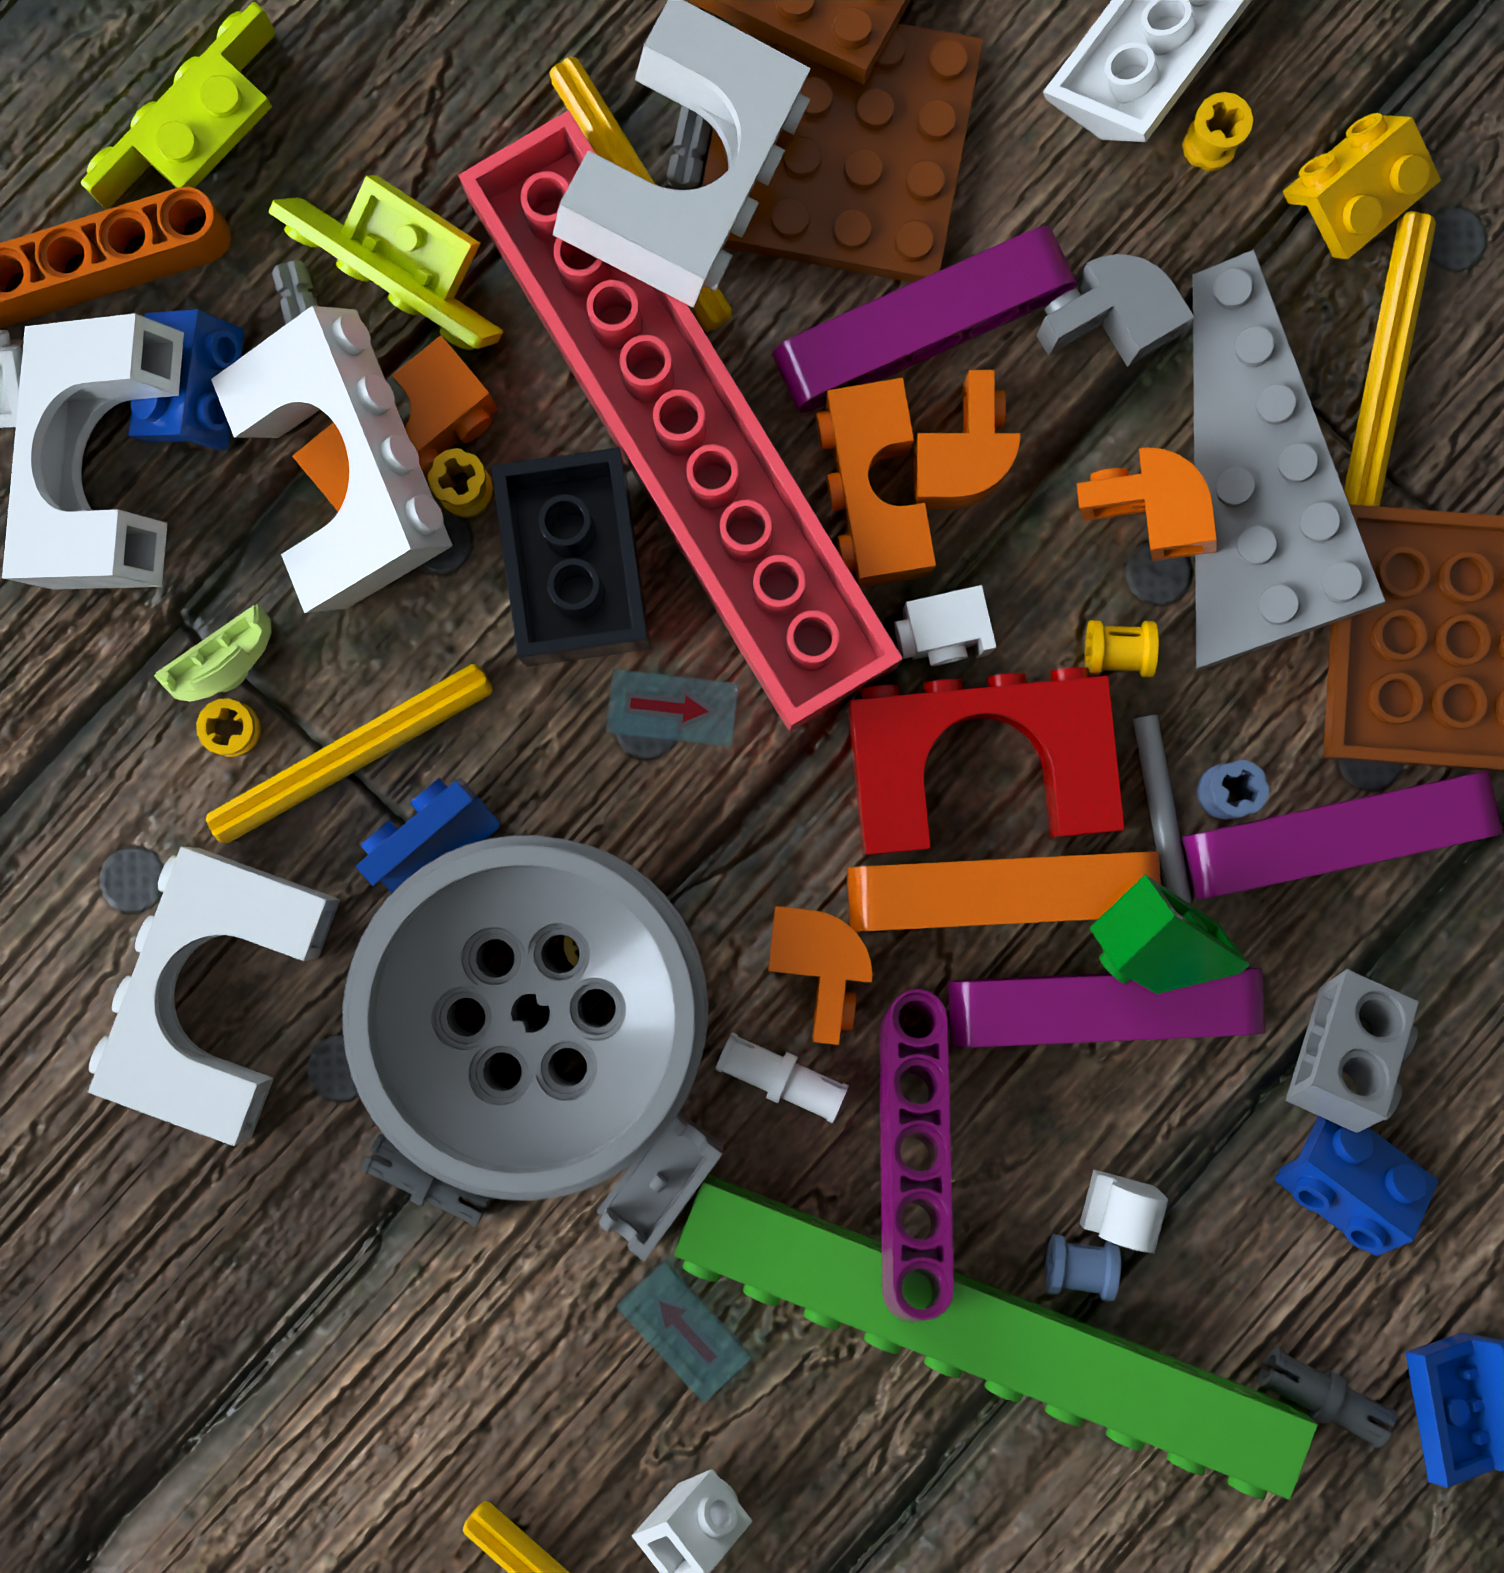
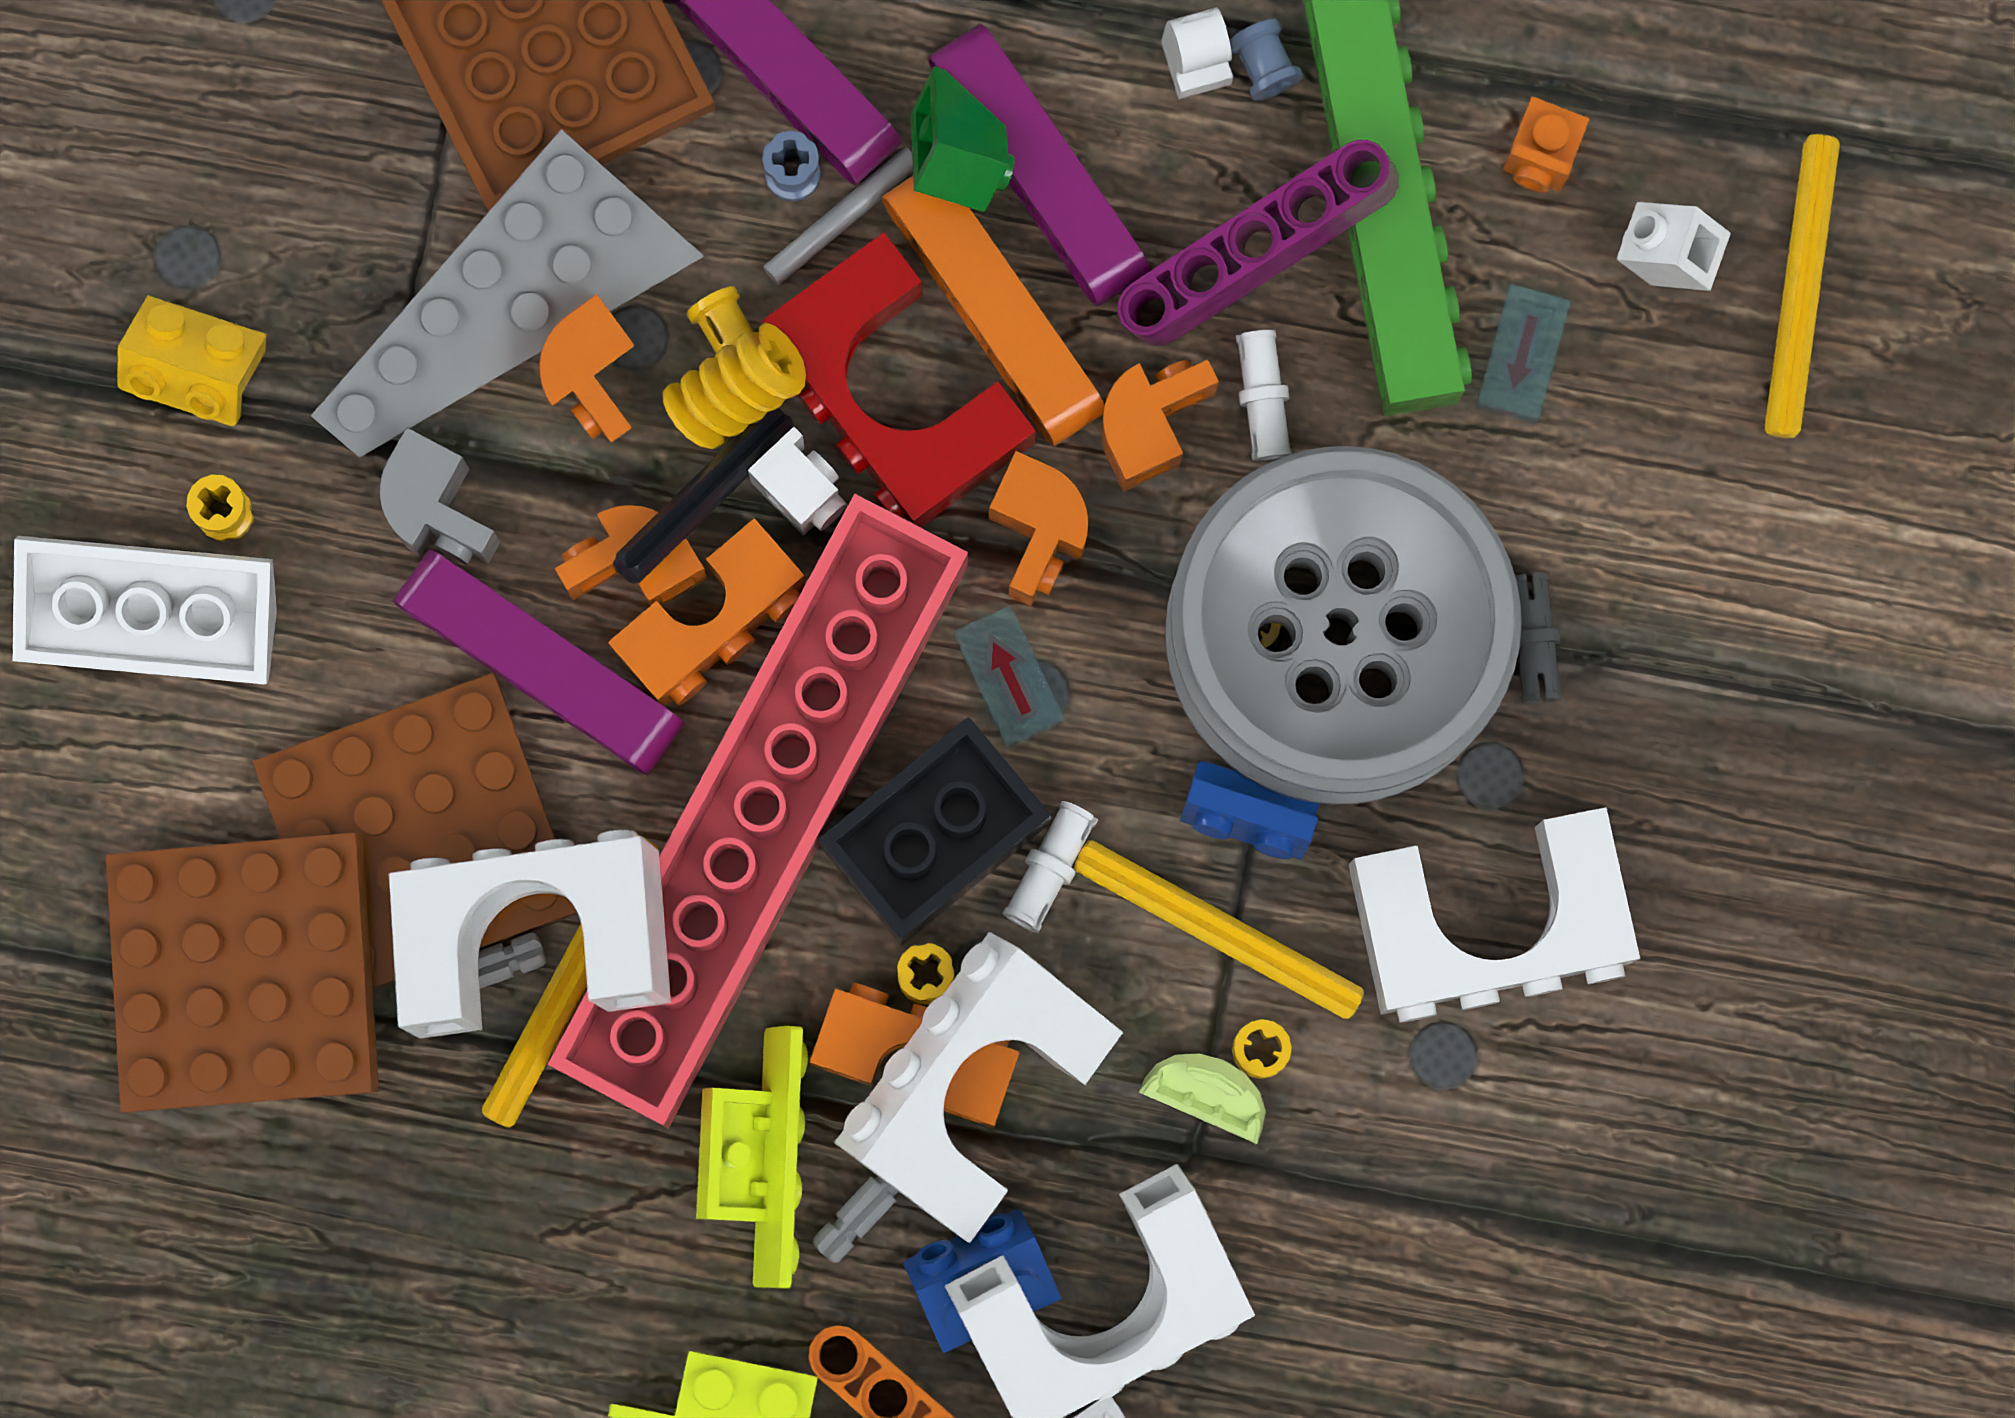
camera: 130 degrees left, 5 degrees down
(488, 642) = (1050, 866): none -> white pin
(659, 1185) = (1430, 435): light grey hinge -> none
(788, 828) = (1049, 511): none -> orange brick
(855, 1469) = (1545, 146): none -> orange bracket
(982, 530) = (699, 497): none -> black axle
(1061, 617) = (736, 387): none -> yellow piece
(1389, 359) = (336, 248): yellow axle -> none

